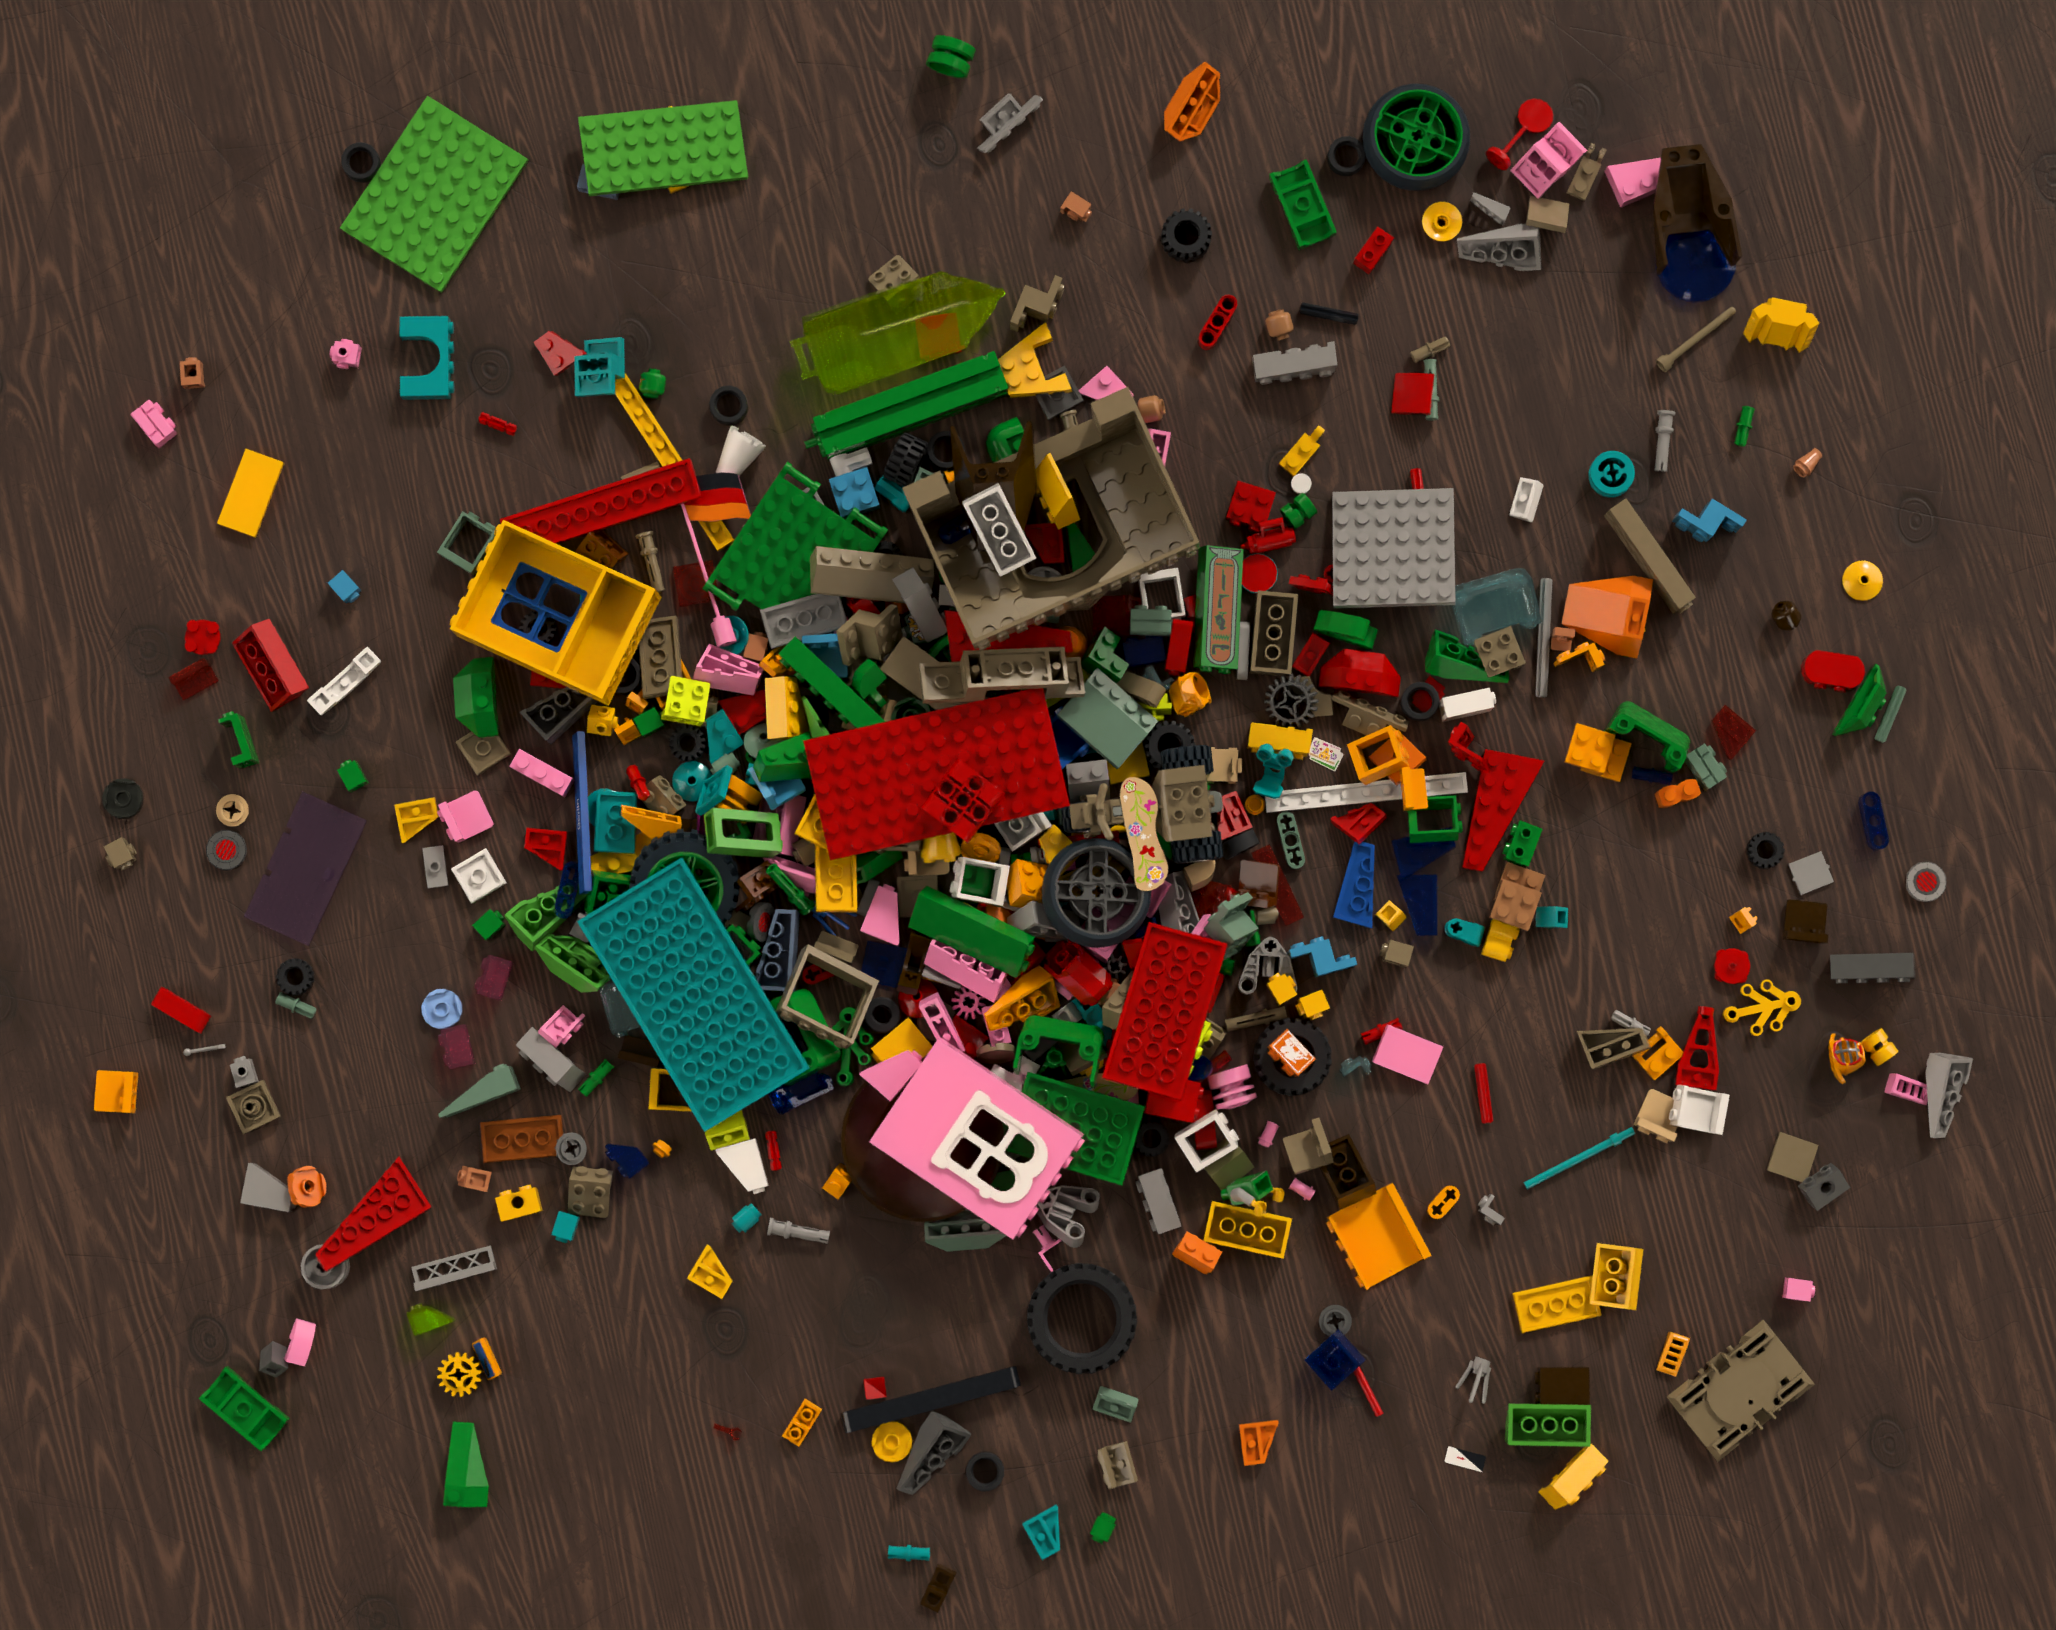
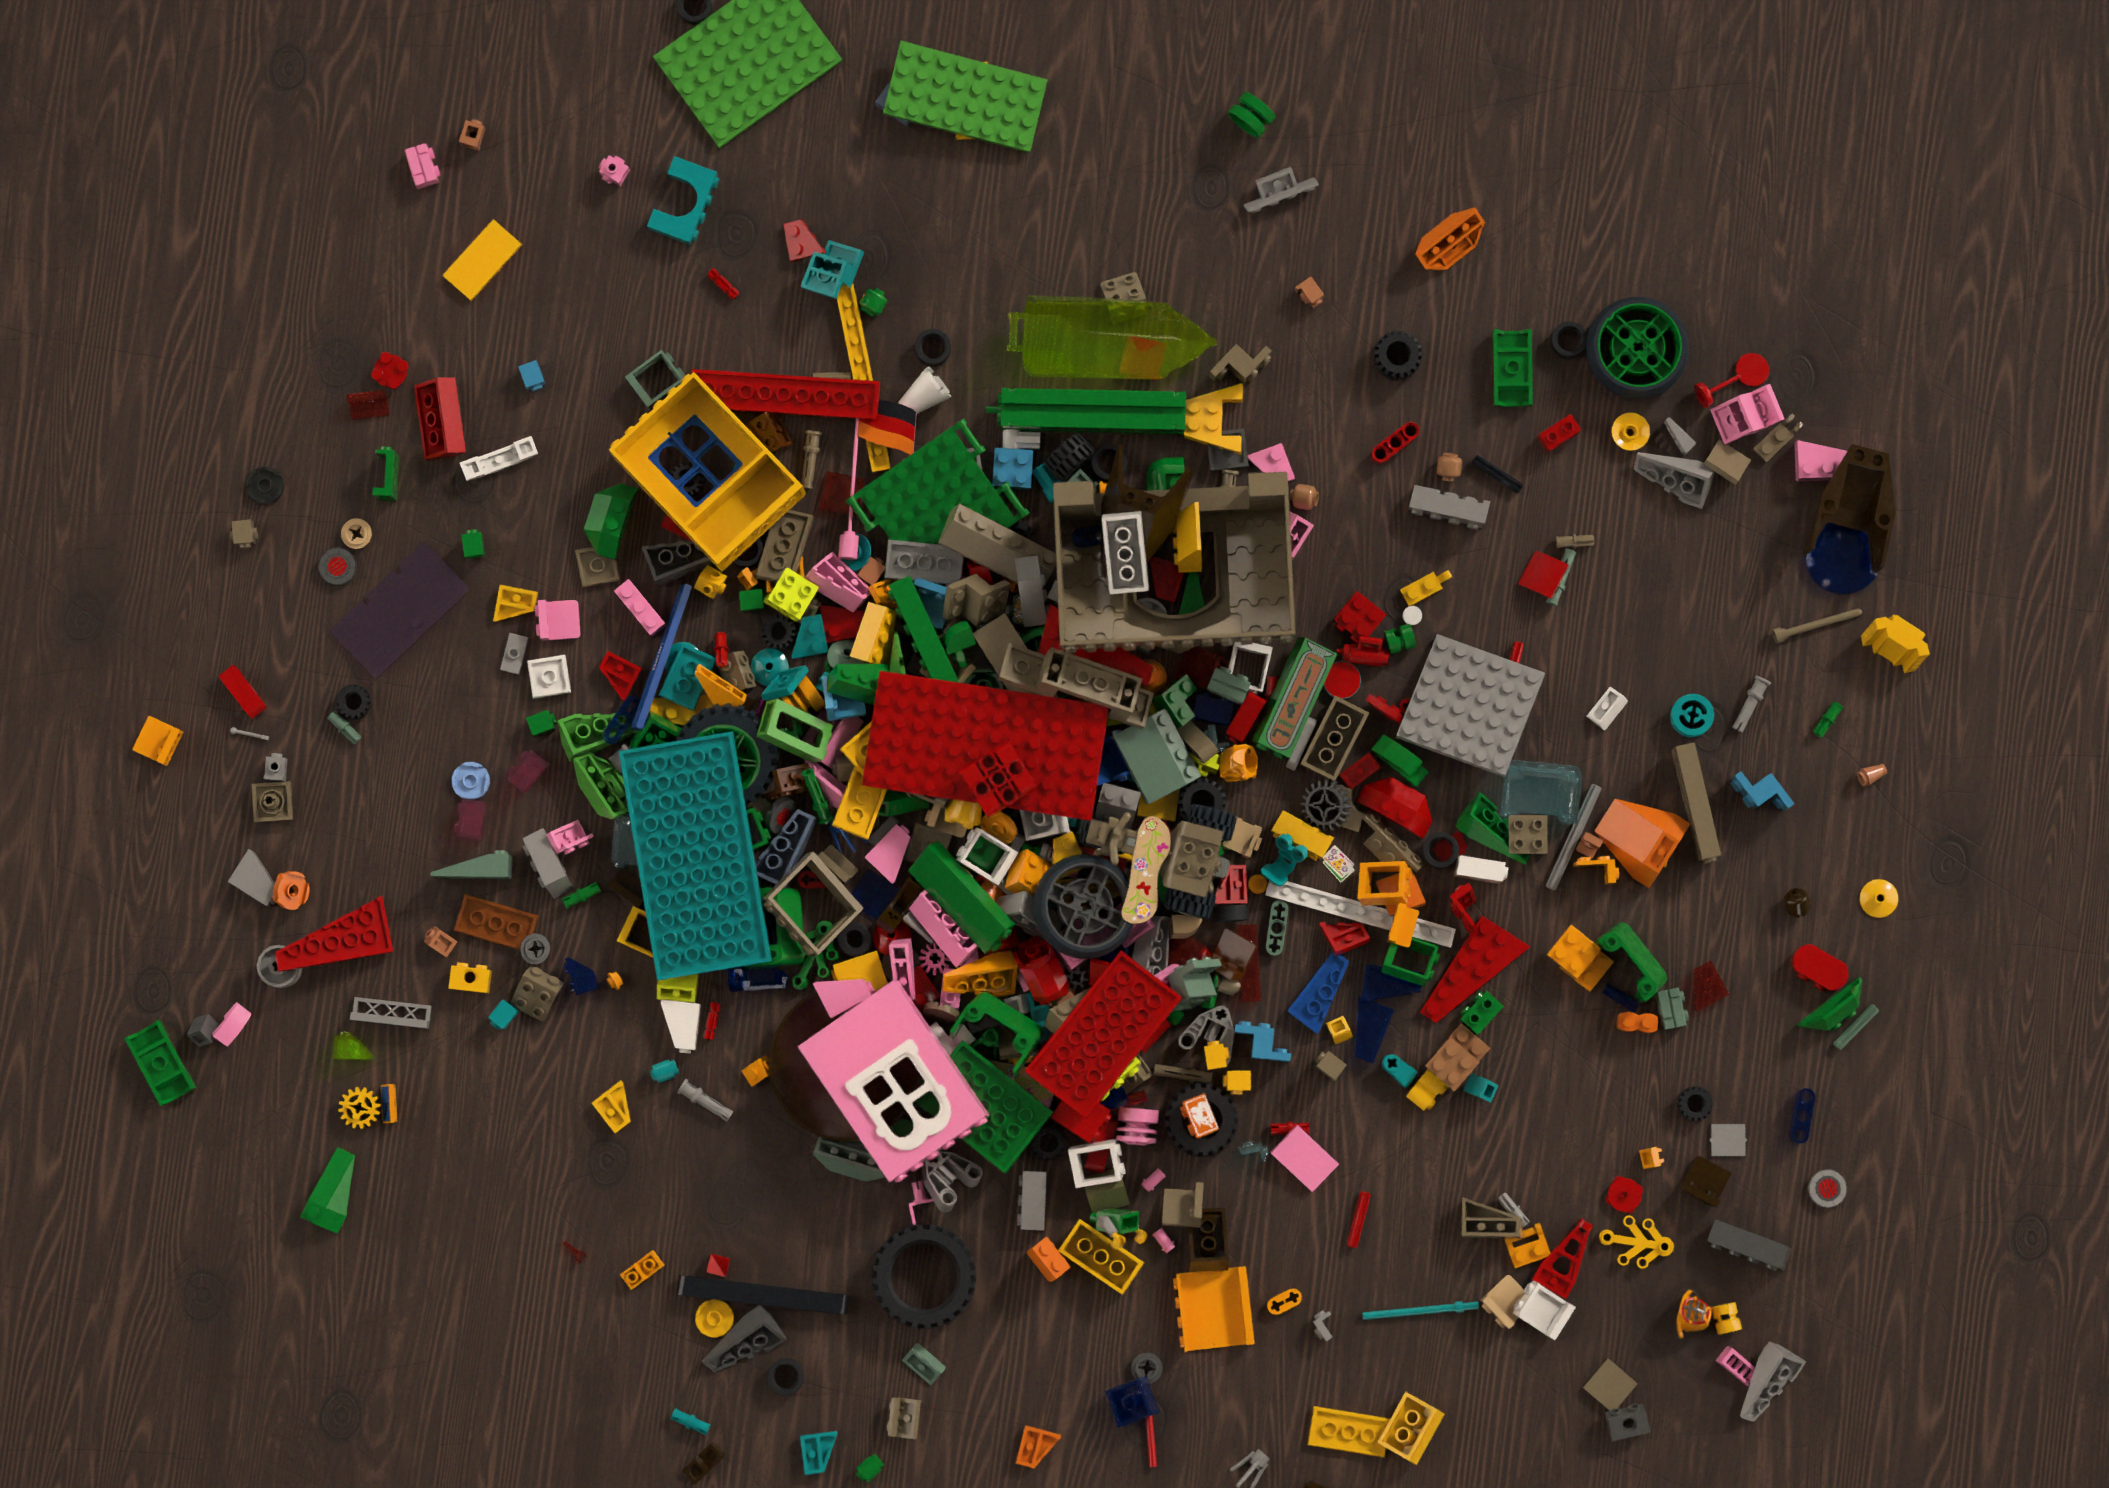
camera: 25 degrees right, 0 degrees up
(627, 731) = (729, 601): light orange tile -> none
(725, 760) = (807, 660): sand green brick -> none

